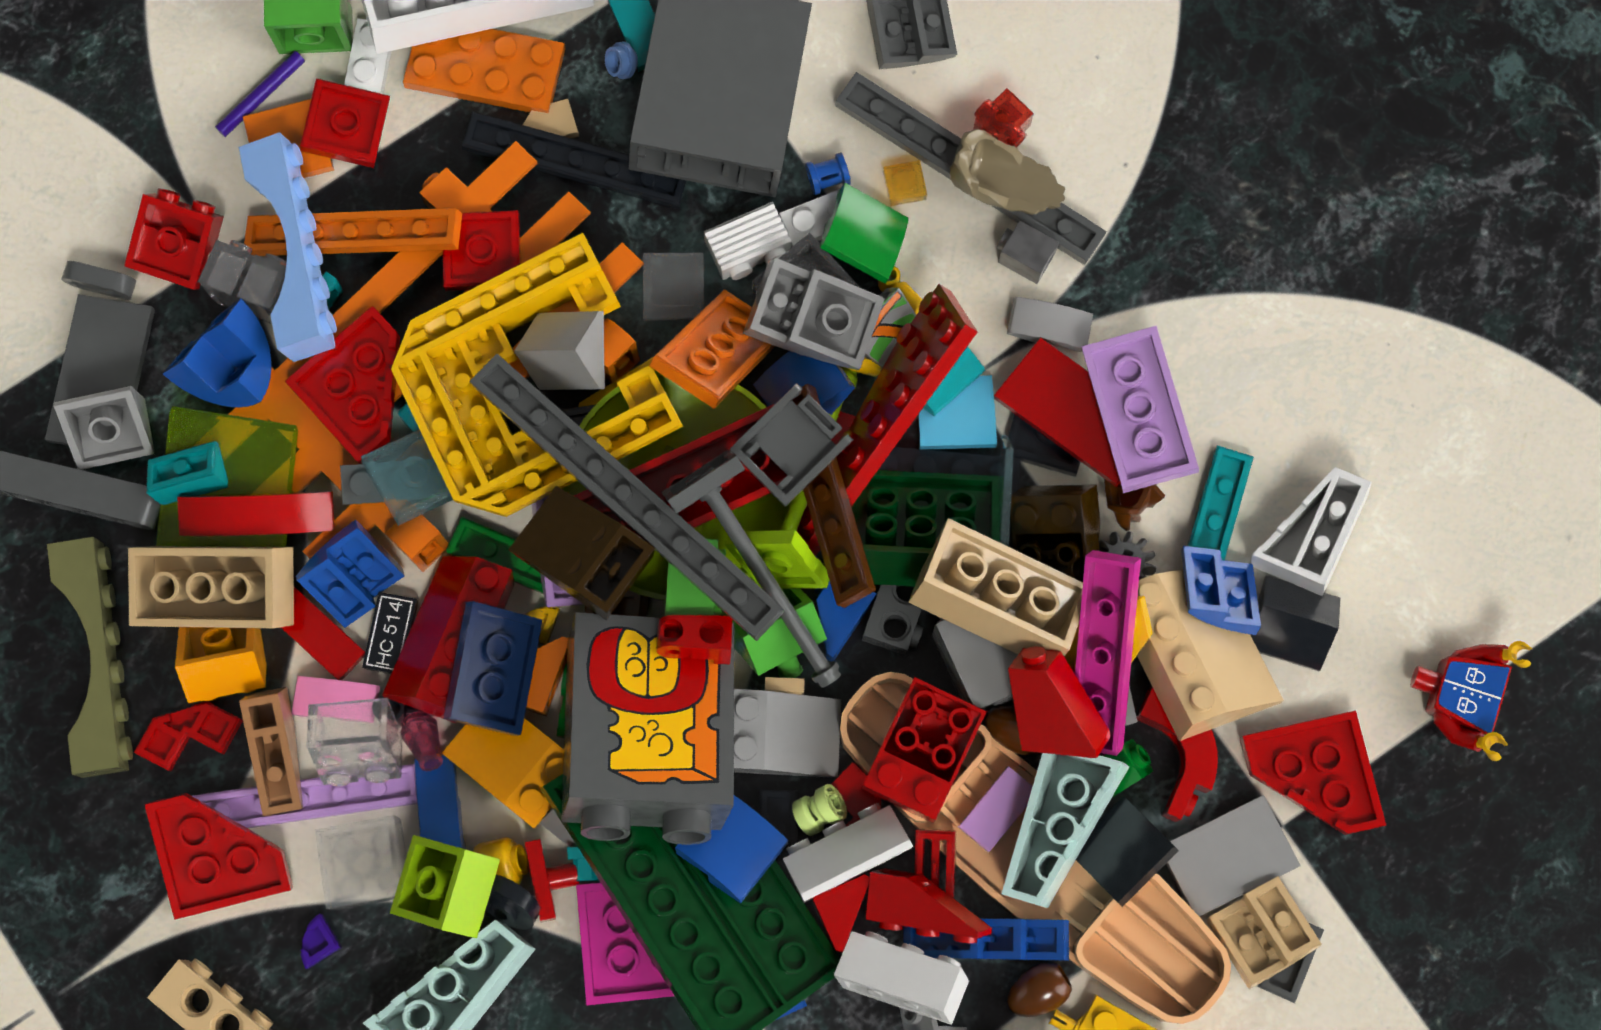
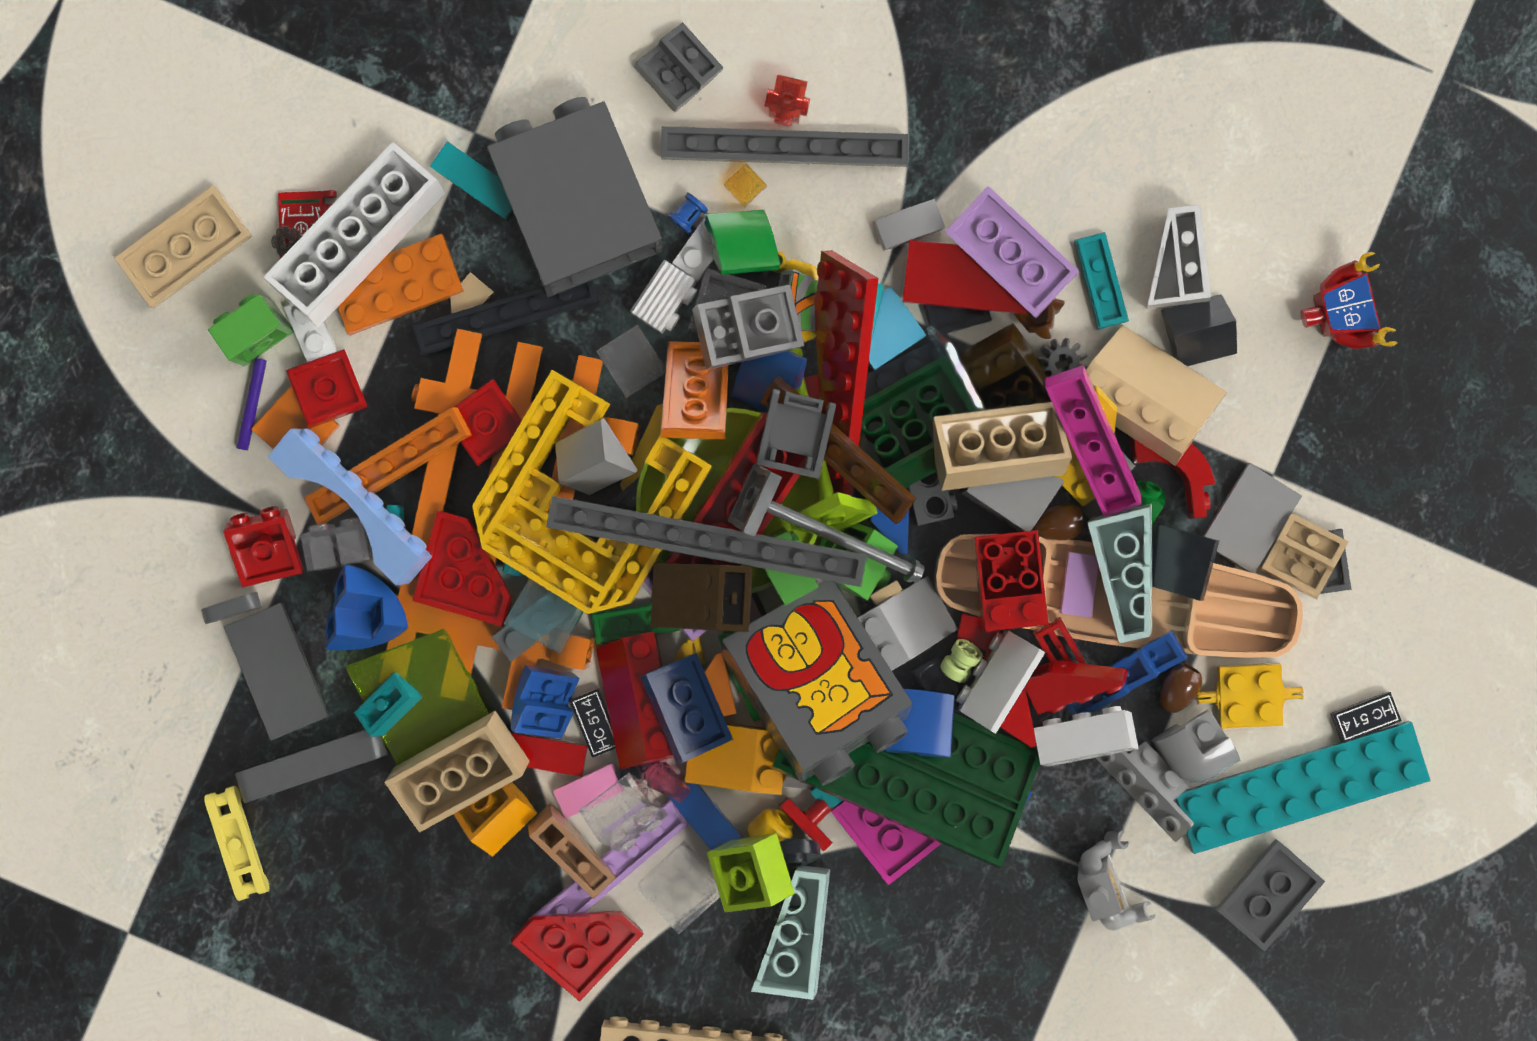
camera: 30 degrees left, 10 degrees up
(98, 736) = (361, 818): olive arch -> none
(106, 427) = (310, 708): light grey slope -> none
(171, 732) = (509, 861): red tile -> none
(255, 514) = (454, 705): red slope -> none
(318, 942) = (683, 954): dark purple tile -> none
(621, 60) = (490, 221): medium blue plate -> none
(695, 637) = (814, 606): red leg -> none
(1003, 176) = (815, 141): dark tan hair -> none
(1027, 251) = (861, 183): flat silver brick -> none
(1053, 706) = (1083, 500): red slope -> none
(1220, 590) = (1140, 343): blue slope -> none
(1320, 769) = (1277, 422): red plate -> none

